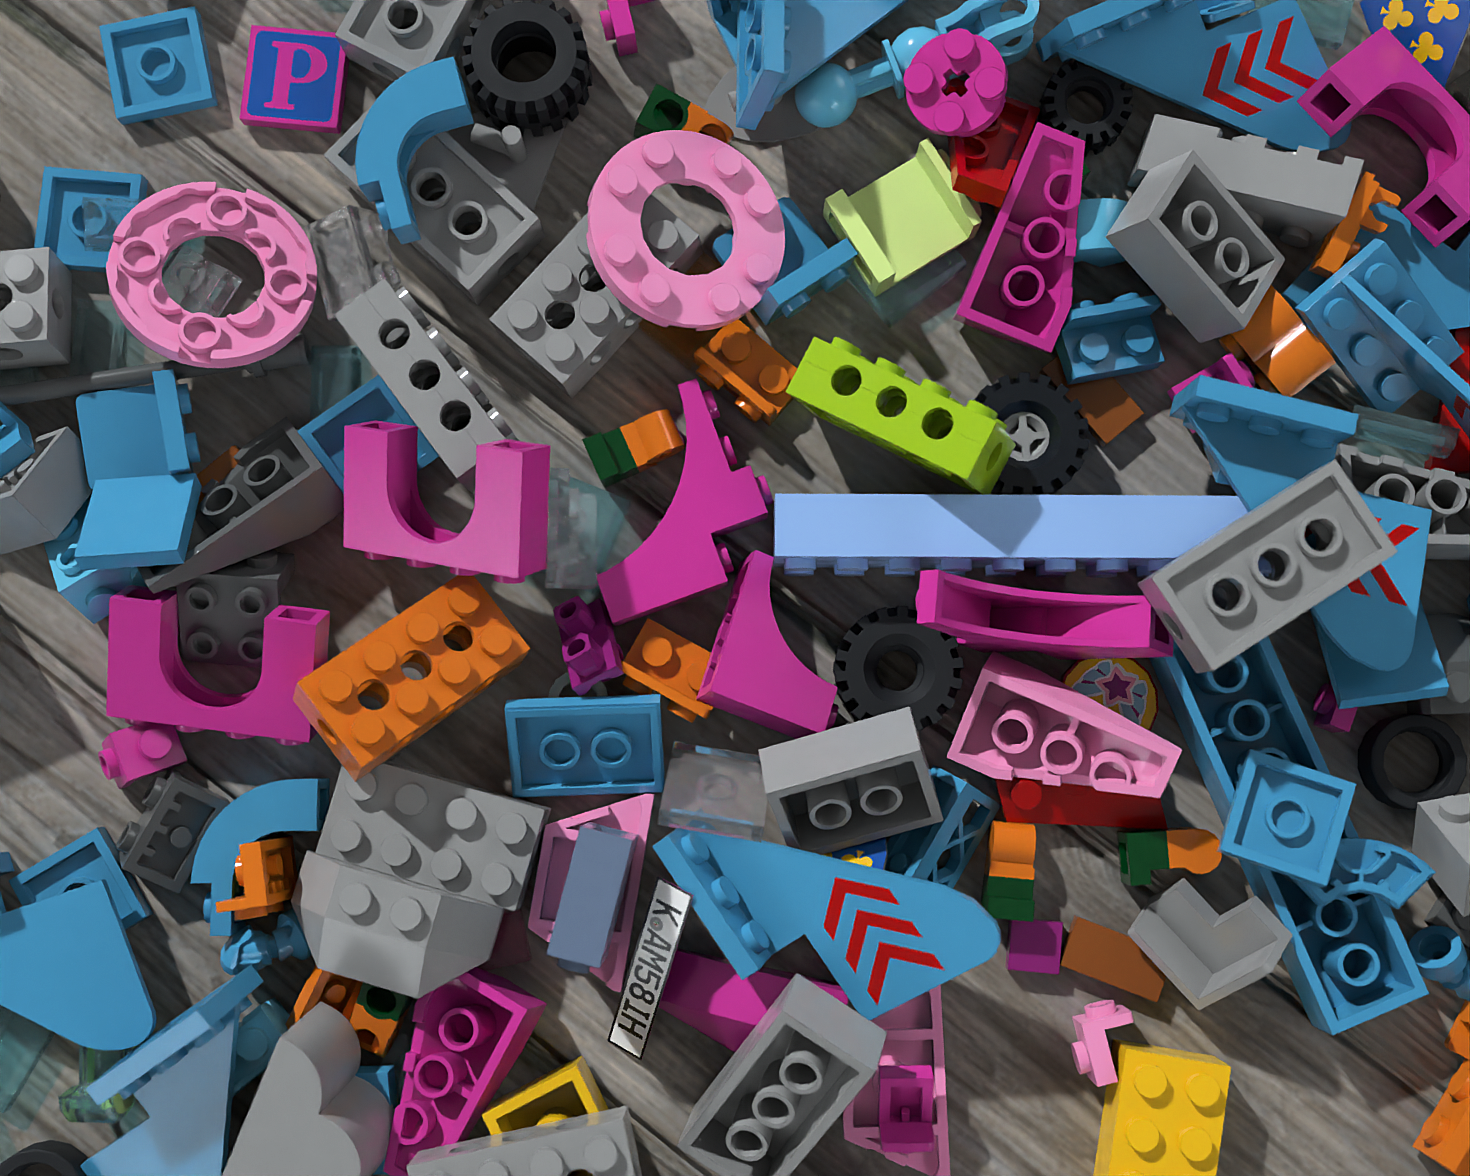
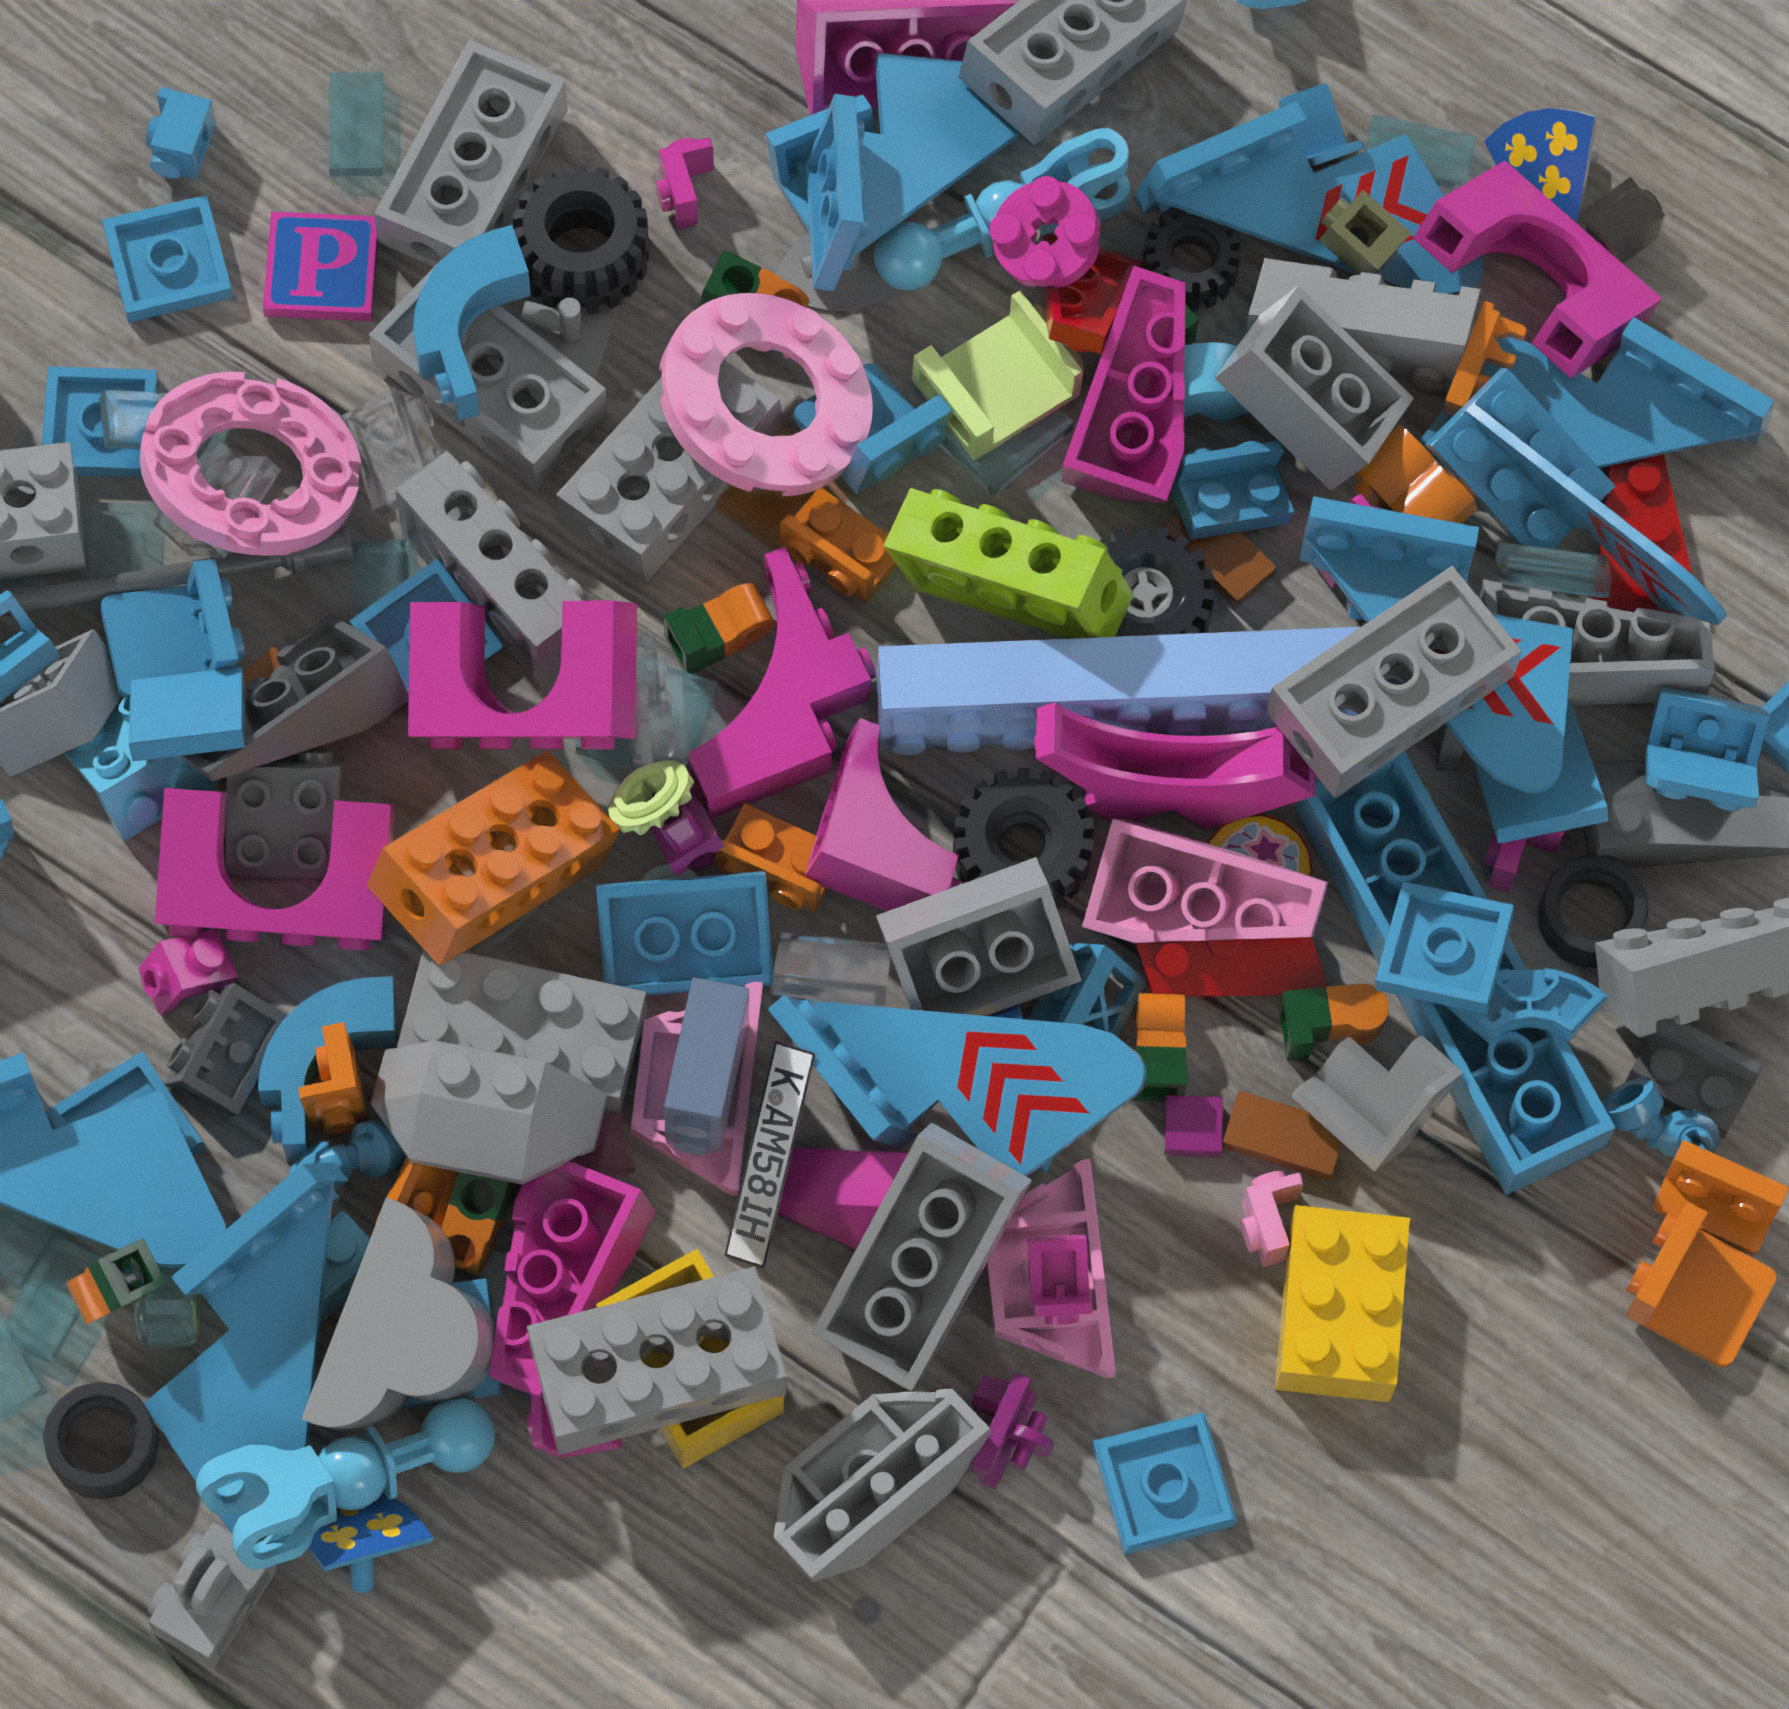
camera: 10 degrees left, 15 degrees down
(48, 1069) = (112, 1284): none -> dark green leg
(545, 617) = (633, 804): none -> yellowish green gear
(1263, 91) = (1368, 219): none -> olive brick

